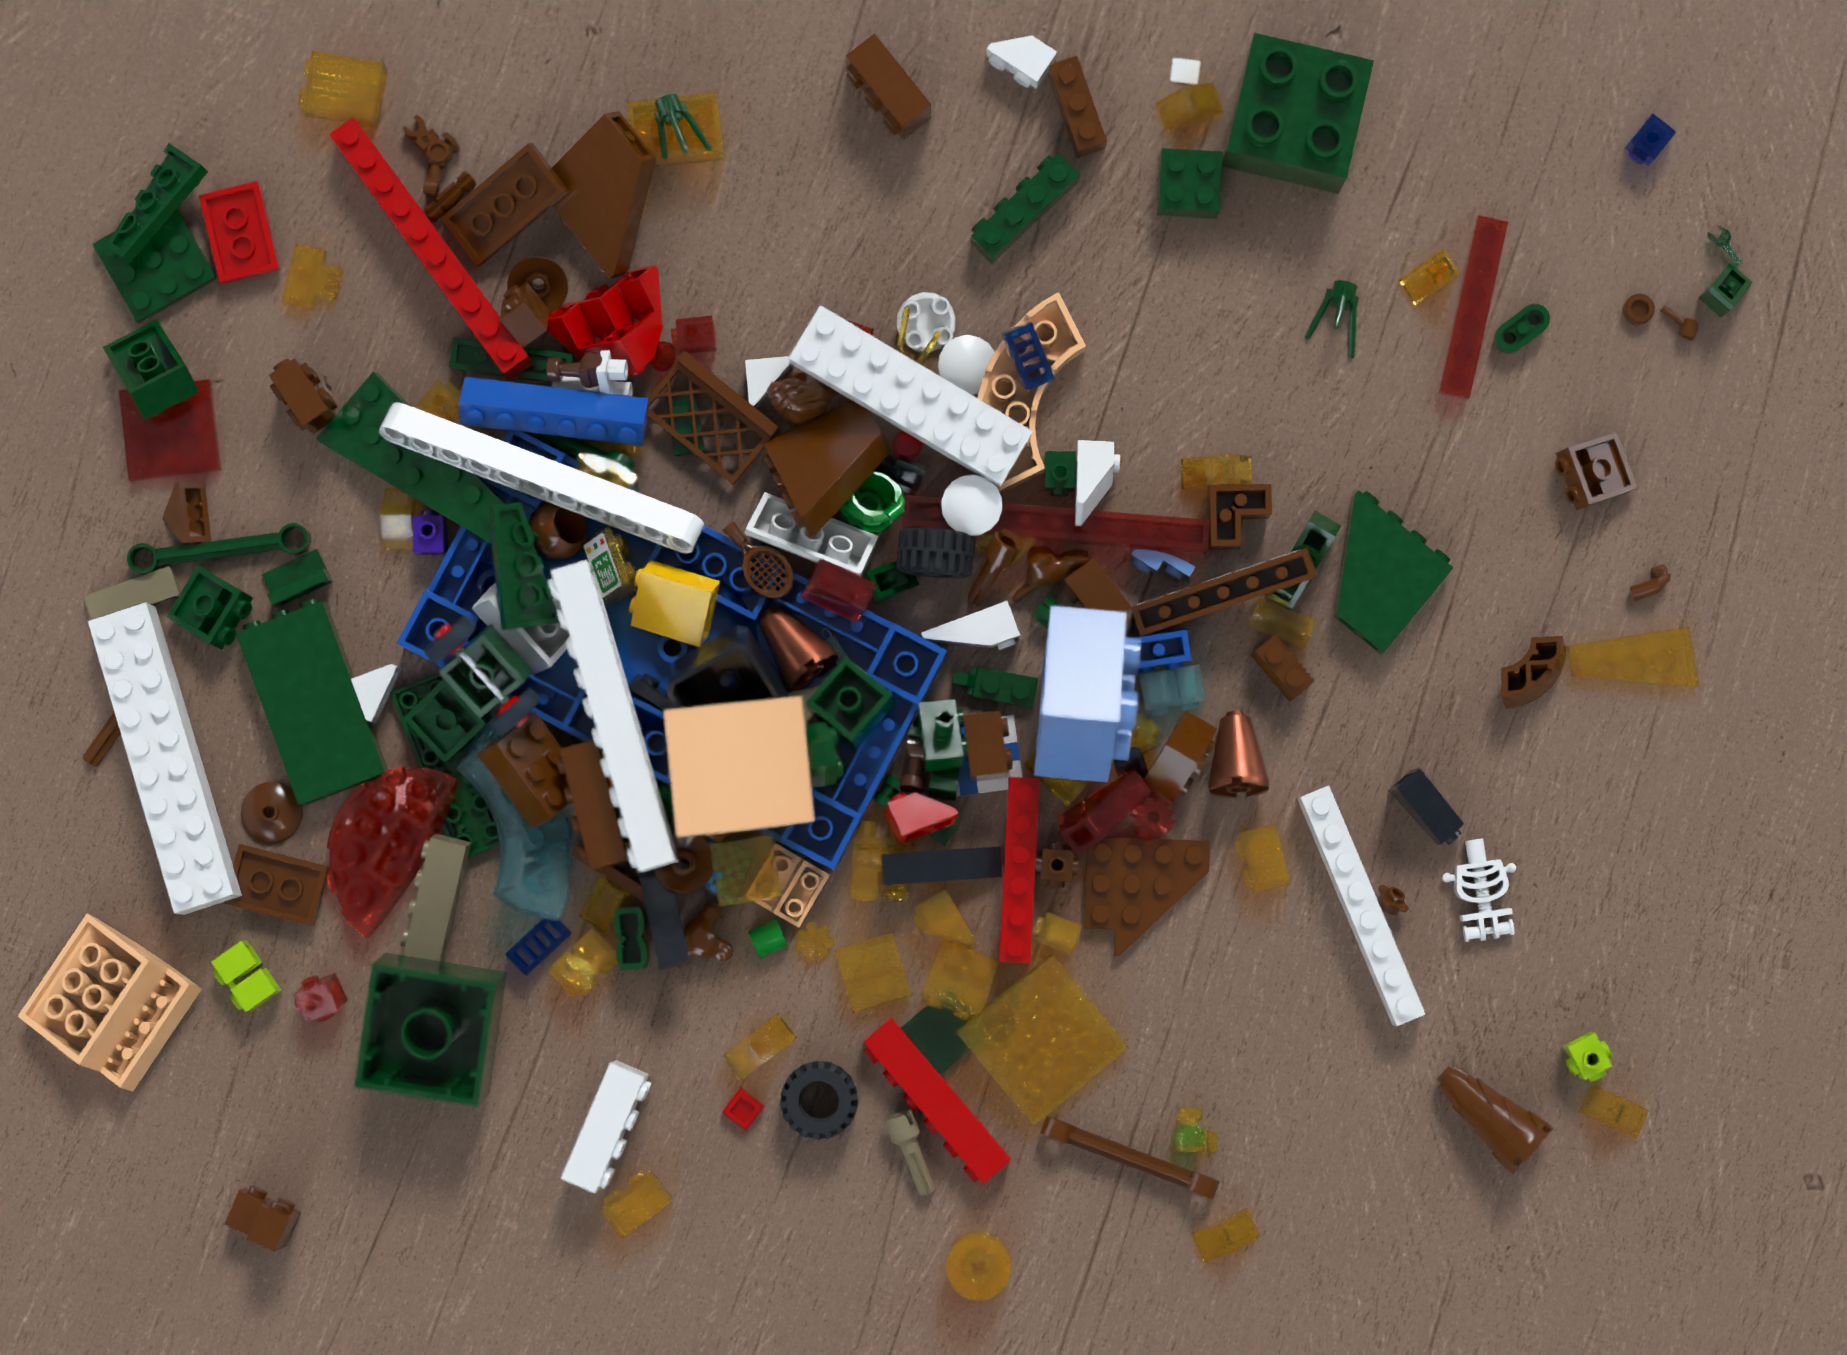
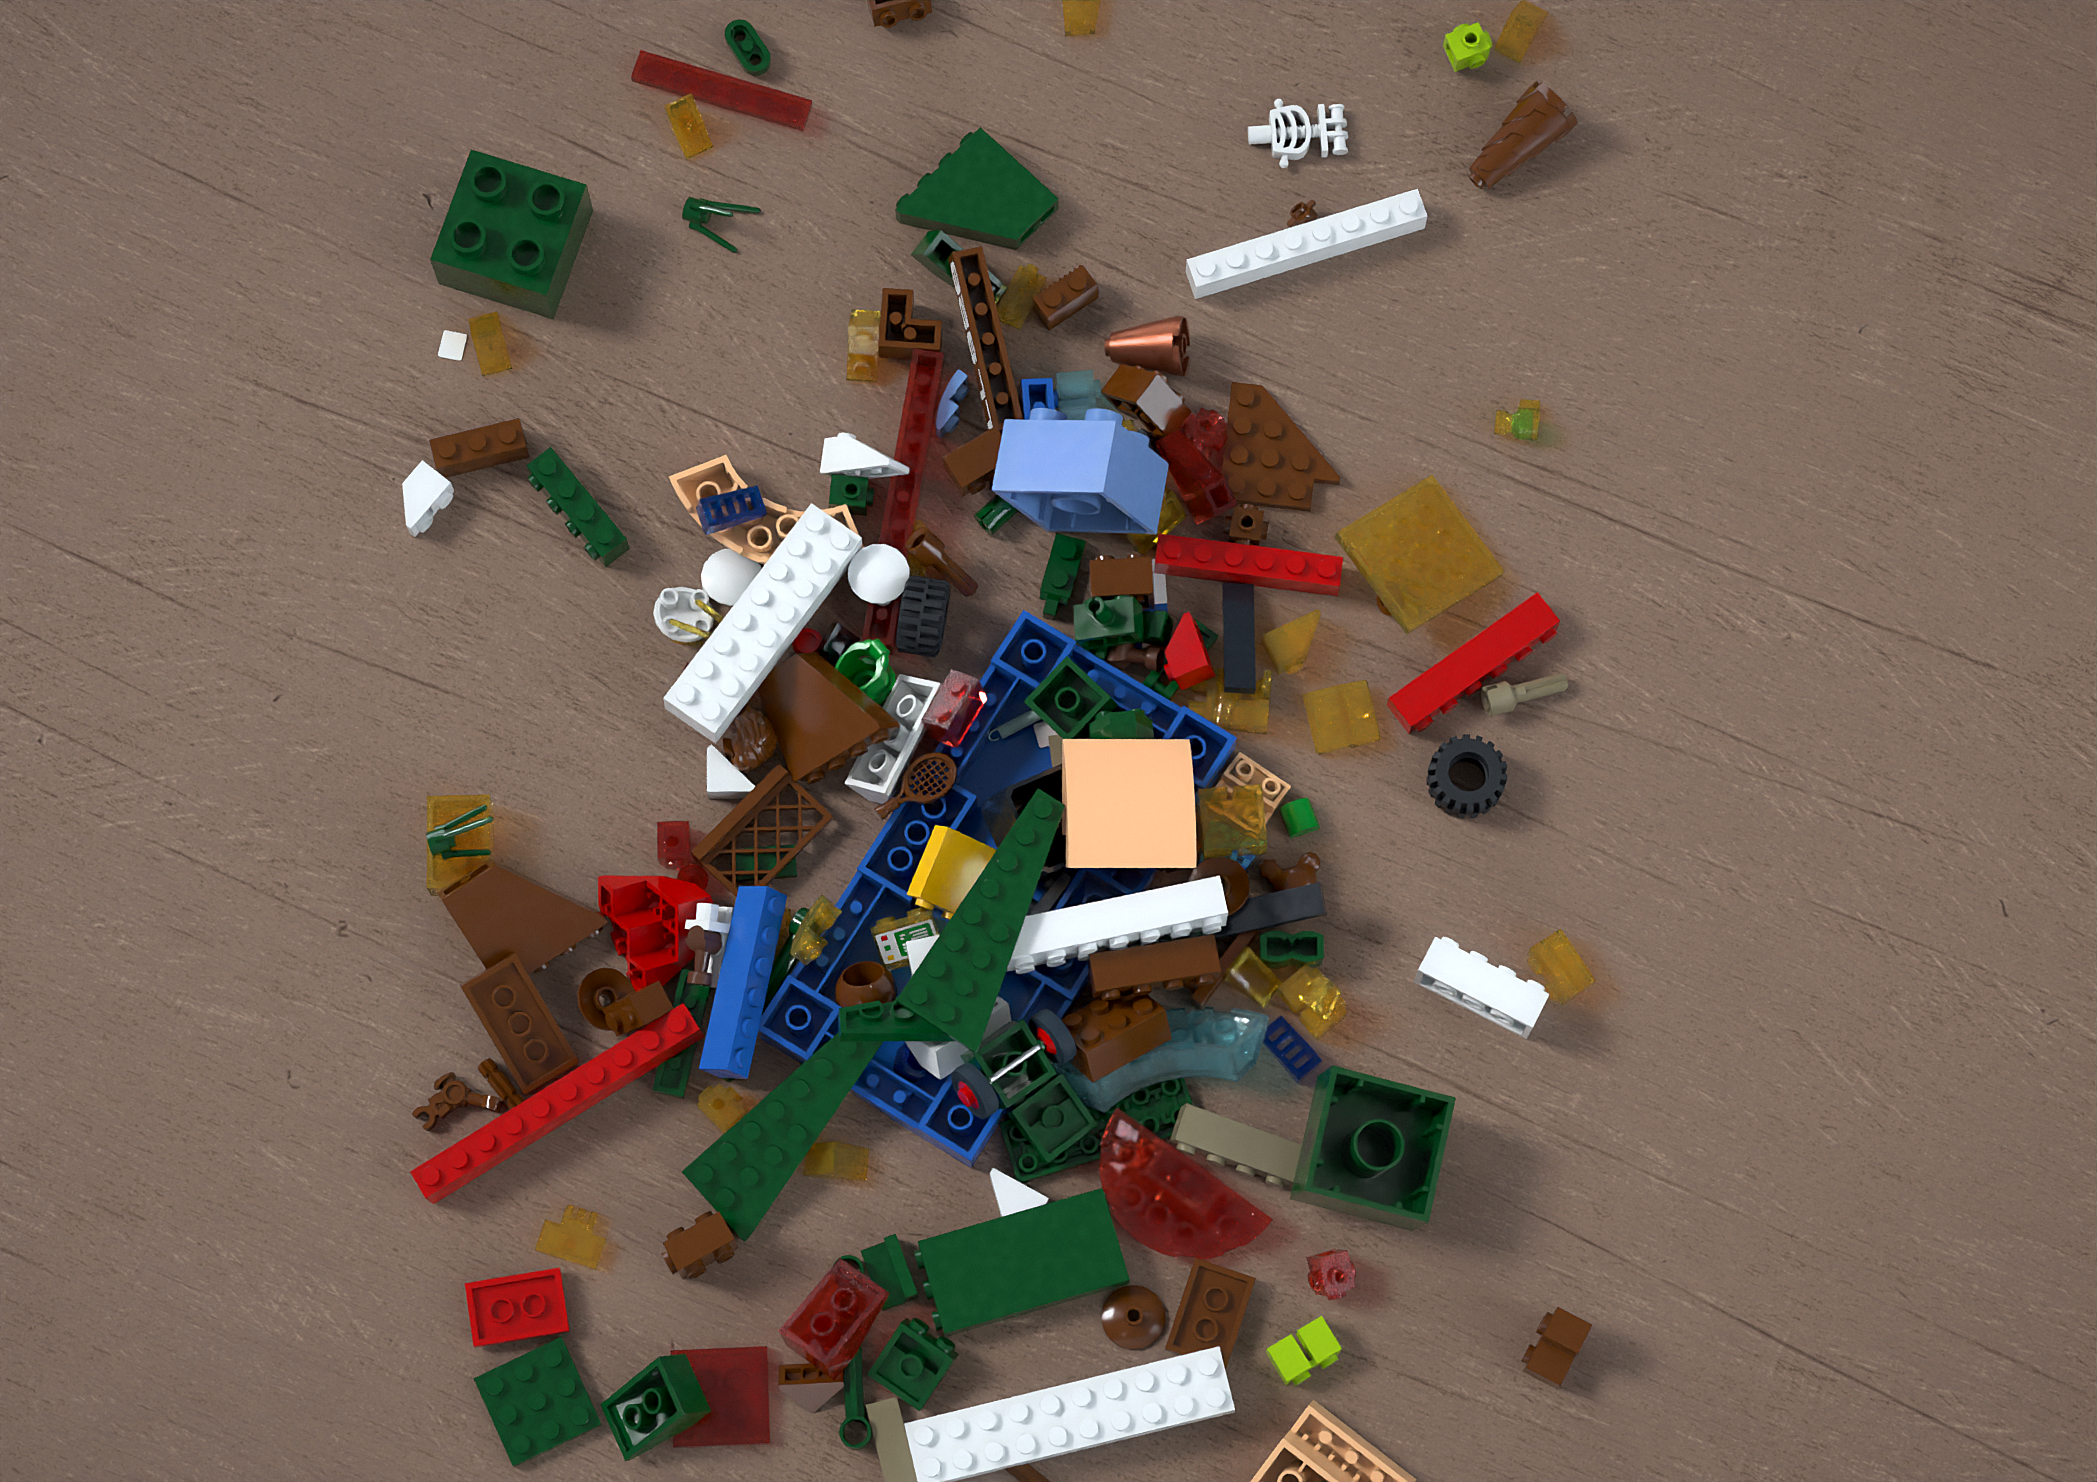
camera: 90 degrees left, 10 degrees down
(164, 195) = (467, 1379): dark green wing -> none
(242, 528) = (834, 1319): none -> clear red slope
(343, 88) = (376, 1187): clear yellow brick -> none
(430, 533) = (856, 1128): dark purple brick -> none
(541, 478) = (812, 996): white beam -> none
(571, 623) = (970, 958): none -> dark green wing
(743, 1109) = (1470, 856): red tile -> none
(759, 1046) = (1410, 833): clear yellow slope -> none
(795, 648) = (1005, 762): copper cone -> none
(820, 936) = (1305, 779): clear yellow plant -> none
(887, 87) = (440, 628): reddish brown piece -> none
(889, 582) = (943, 663): dark green slope -> none
(936, 1036) = (1401, 655): clear green tile -> none
(959, 980) = (1355, 631): clear yellow plate -> none
(974, 1247) = (1636, 649): clear yellow wheel -> none
(982, 629) = (1001, 578): white slope -> none
(1047, 567) = (946, 514): reddish brown animal -> none
(1057, 932) = (1314, 527): clear yellow brick -> none
(1130, 1157) = (1540, 482): reddish brown piece -> none
(1189, 183) = (569, 346): dark green brick -> none
(1226, 1235) = (1623, 399): clear yellow slope -> none
(1263, 858) = (1253, 331): clear yellow brick -> none
(1427, 807) = (1212, 173): black slope -> none
(1534, 673) = (1091, 62): reddish brown brick -> none

